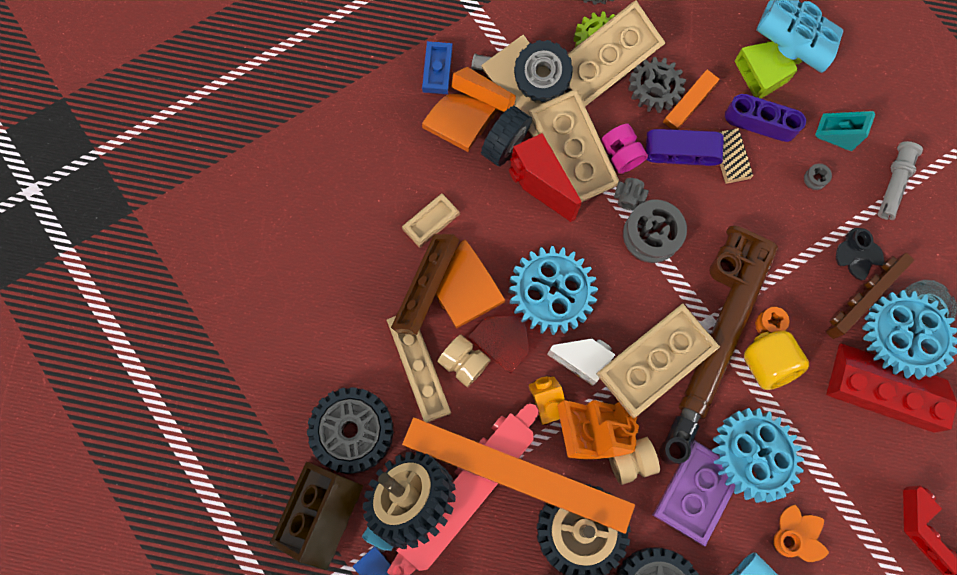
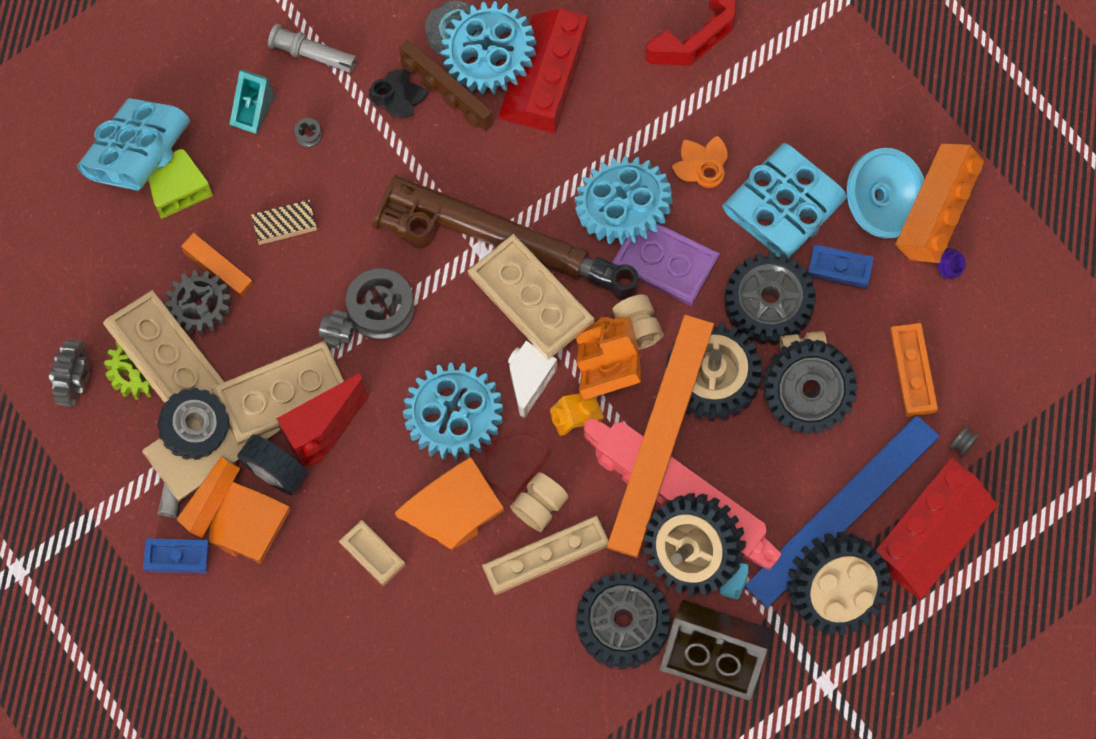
camera: 85 degrees left, 5 degrees down
(425, 284) = (452, 548): reddish brown plate -> none
(622, 146) = (291, 331): dark pink wheel -> none
(684, 147) = (278, 272): dark purple beam -> none
(766, 324) = (480, 191): orange wheel -> none
(775, 359) = (521, 180): yellow head -> none
(776, 114) = (239, 173): dark purple beam -> none

